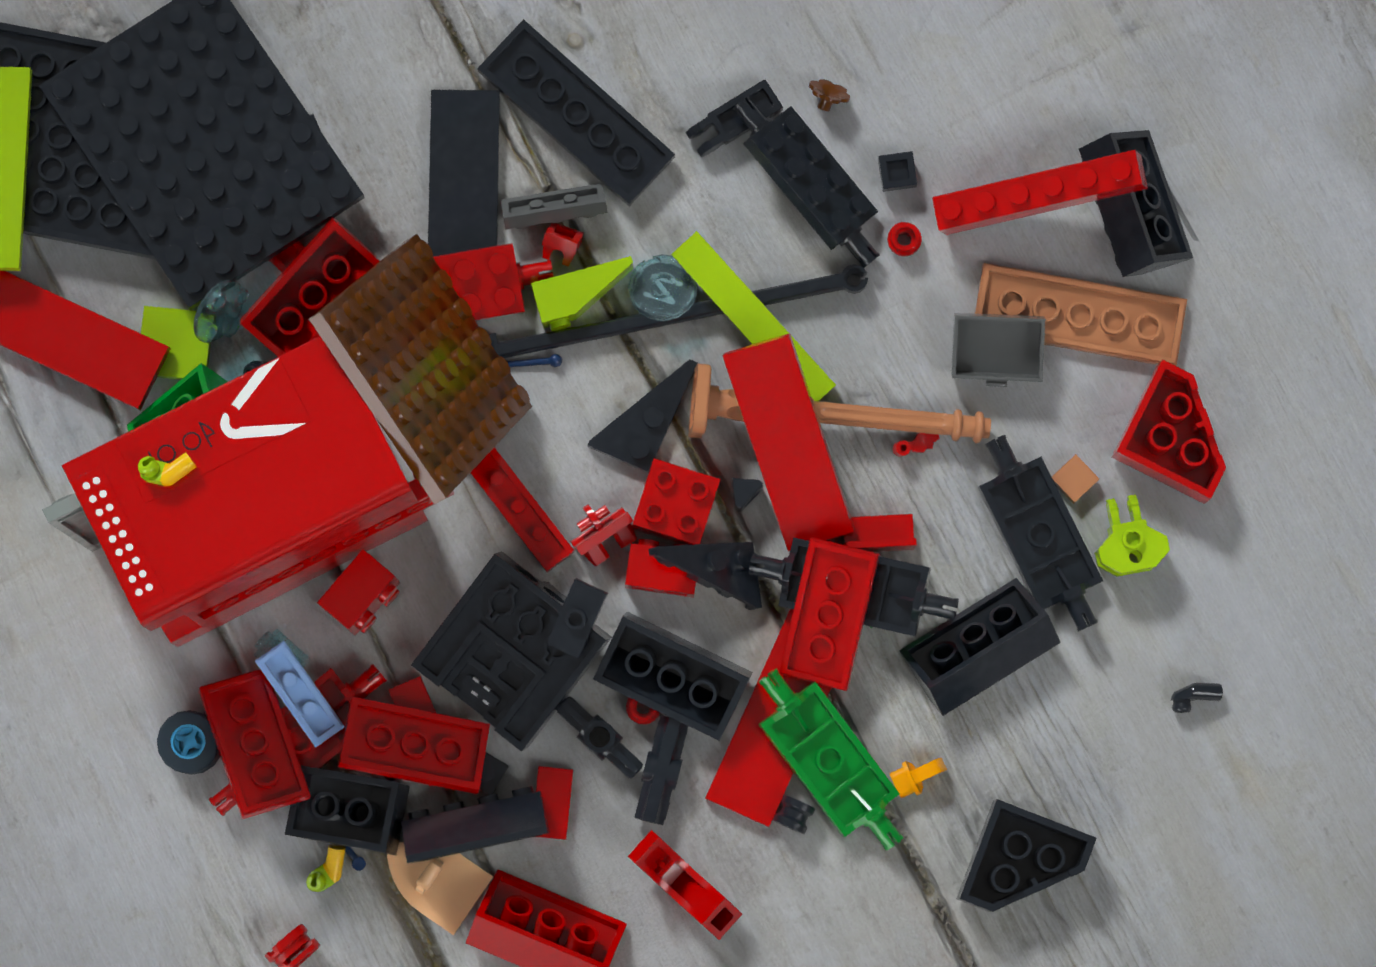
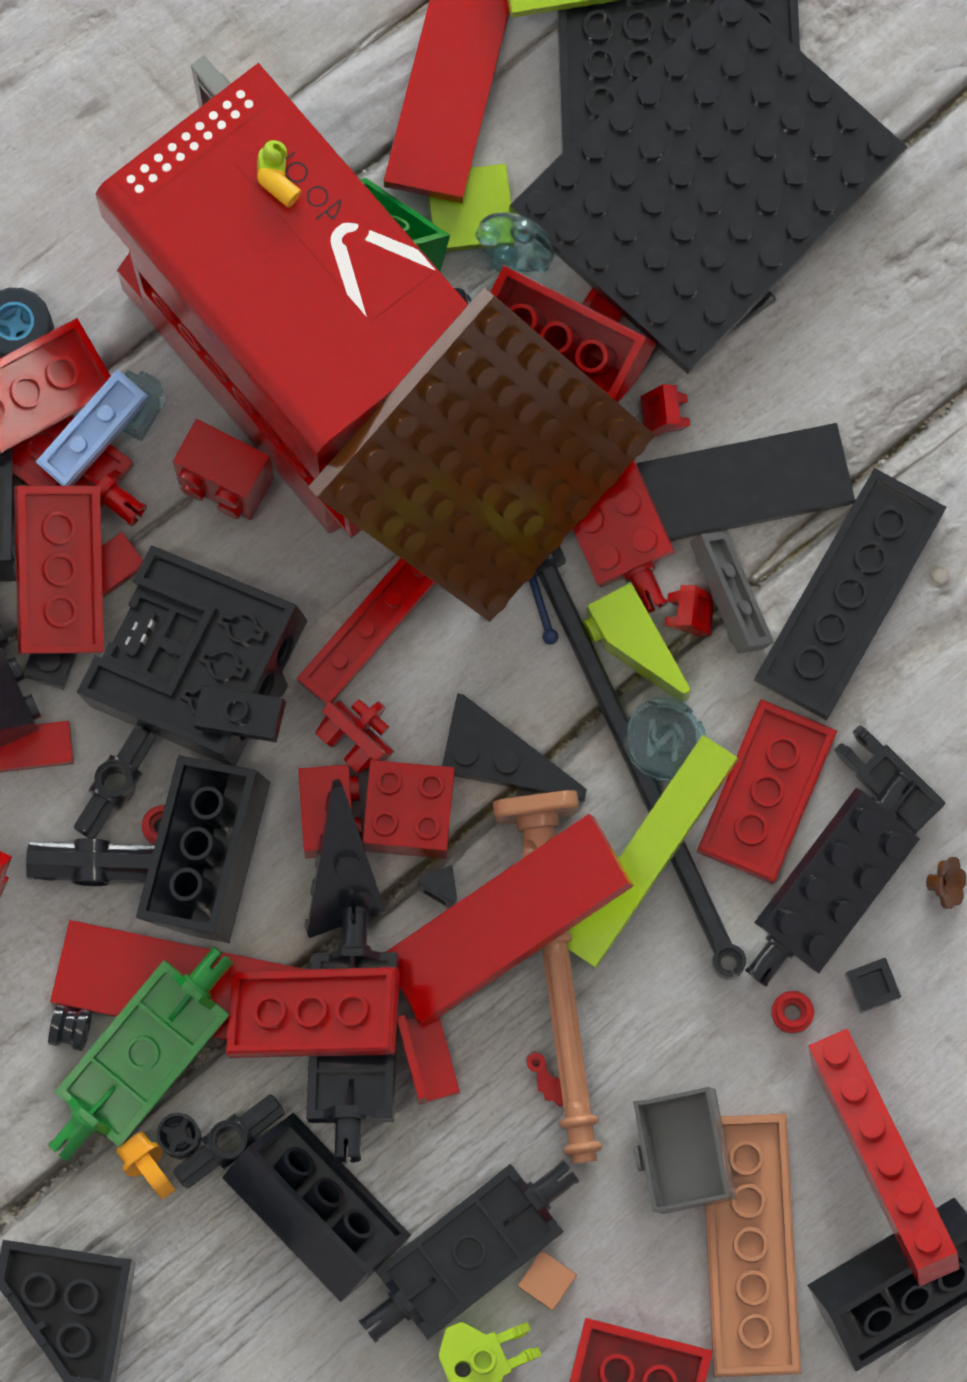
camera: 80 degrees right, 5 degrees down
(388, 226) = (661, 410): none -> red tile
(725, 215) = (766, 791): none -> red tile
(905, 687) = (210, 1157): none -> black axle
(905, 743) = (174, 1131): none -> black wheel

